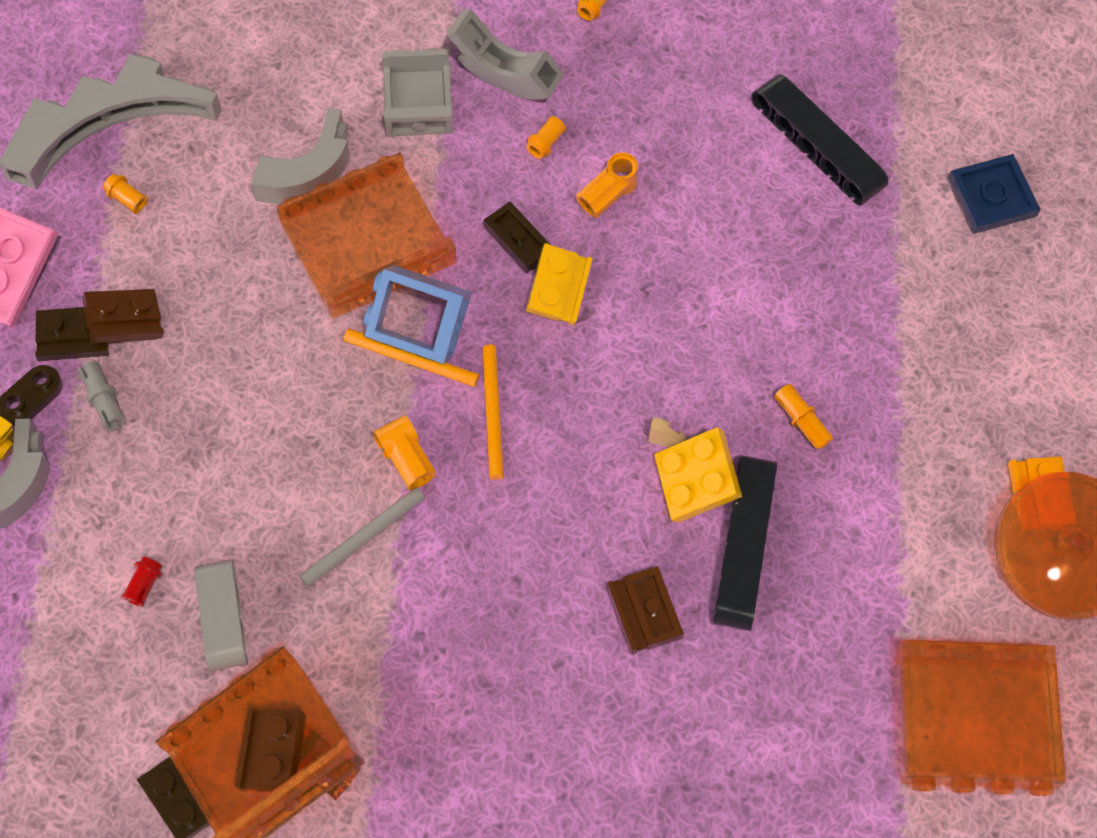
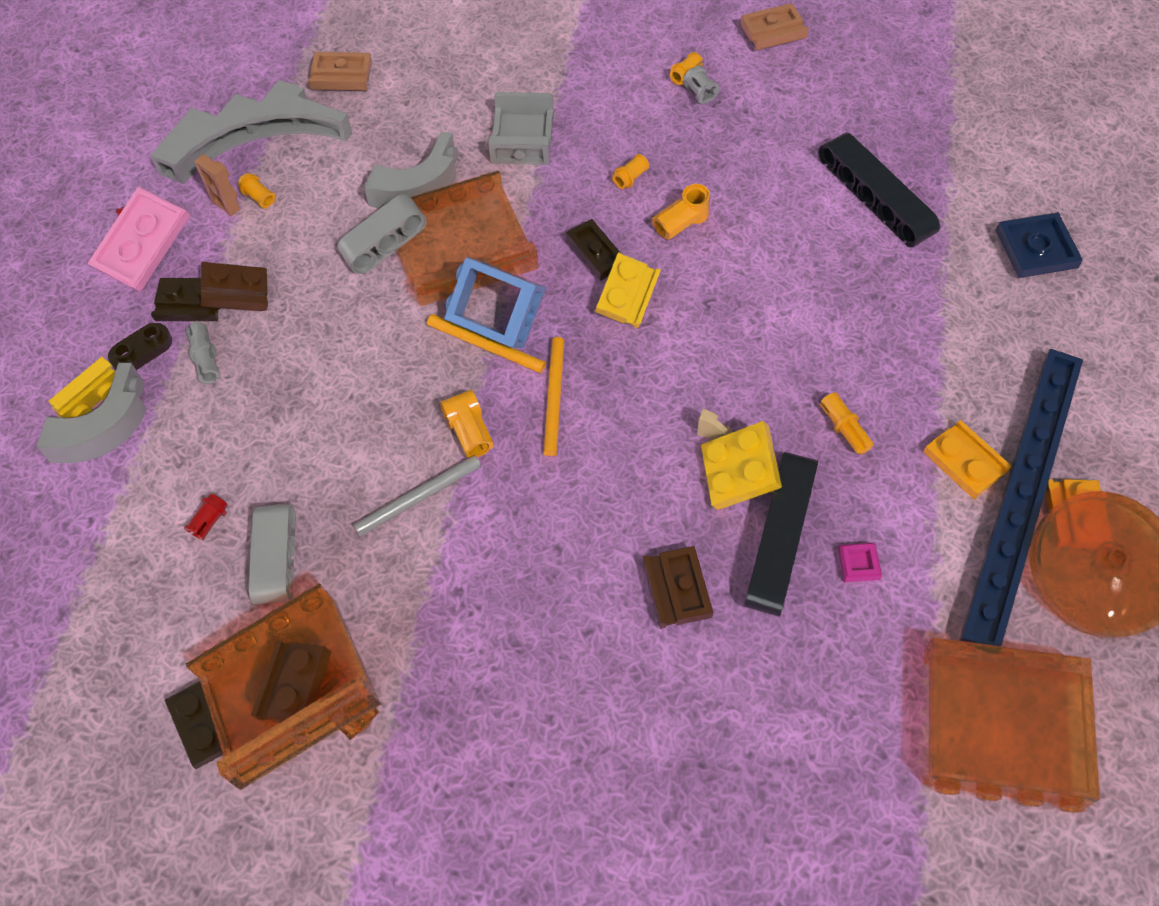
camera: 10 degrees right, 5 degrees down
(84, 194) = (217, 184): none -> nougat plate
(196, 32) = (340, 71): none -> nougat plate
(279, 239) = (382, 234): none -> light grey beam
(516, 72) = (596, 112): light grey arch -> none
(614, 21) = (701, 84): none -> light grey bush
(826, 566) = (859, 562): none -> dark pink tile
(929, 444) = (967, 459): none -> light orange plate
(986, 482) = (1021, 501): none -> dark blue plate

